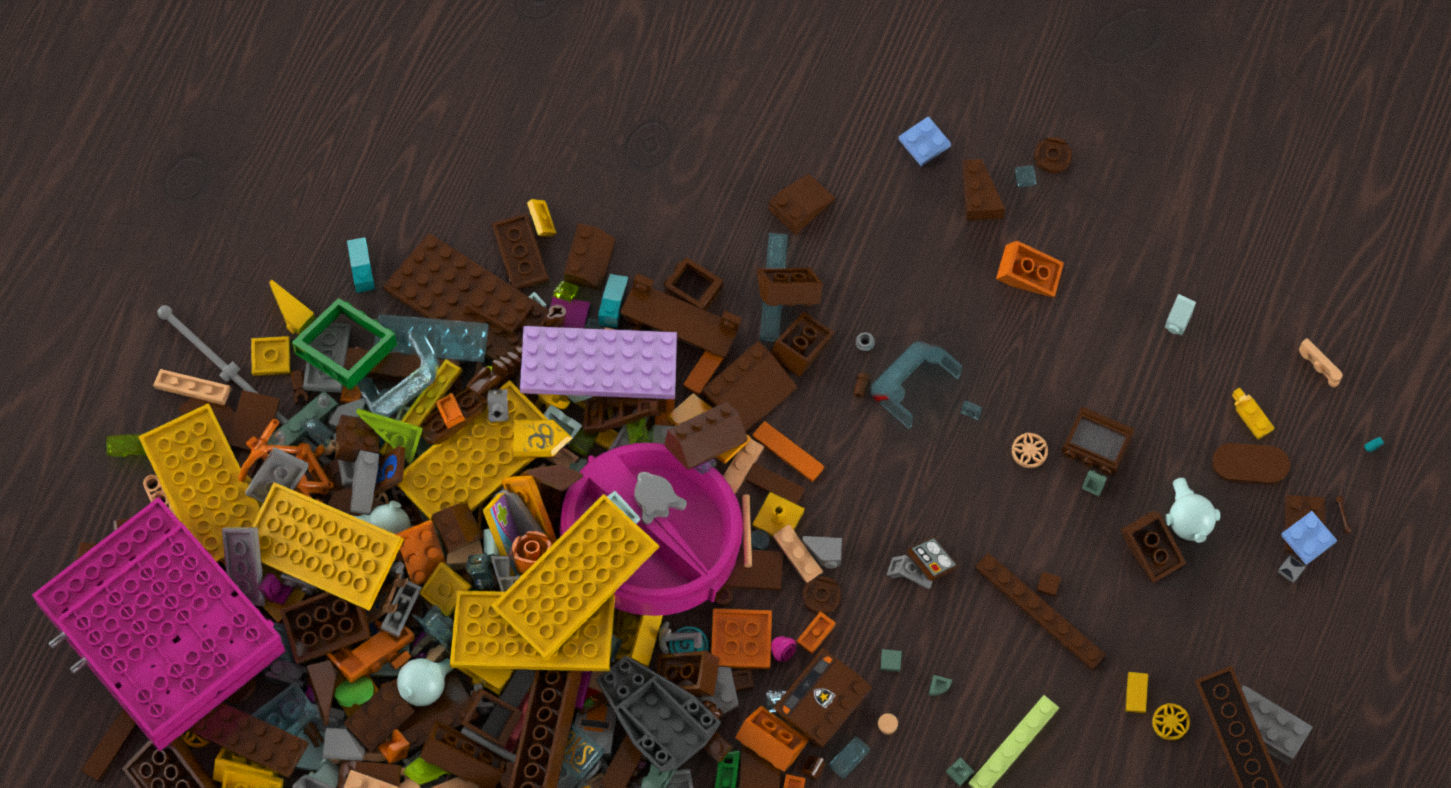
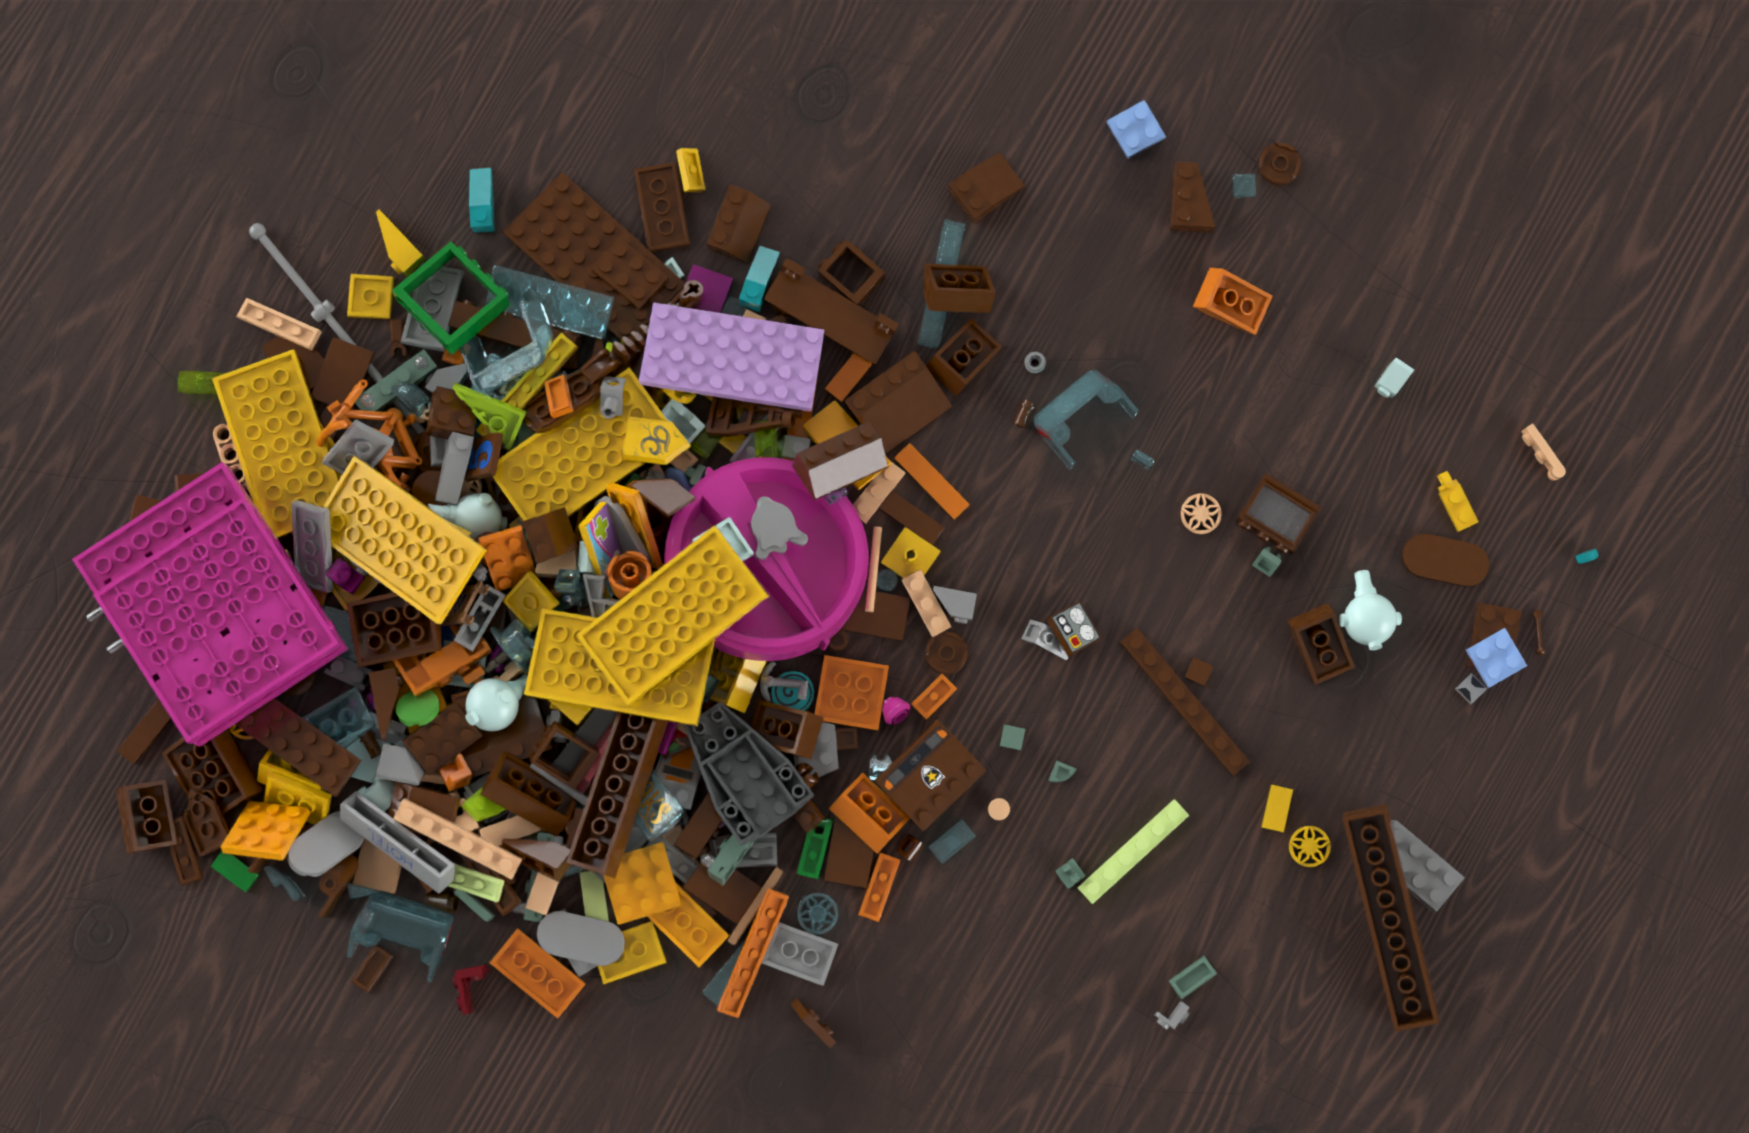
camera: 10 degrees right, 15 degrees up
(565, 291) = (707, 261): clear neon green tile -> none

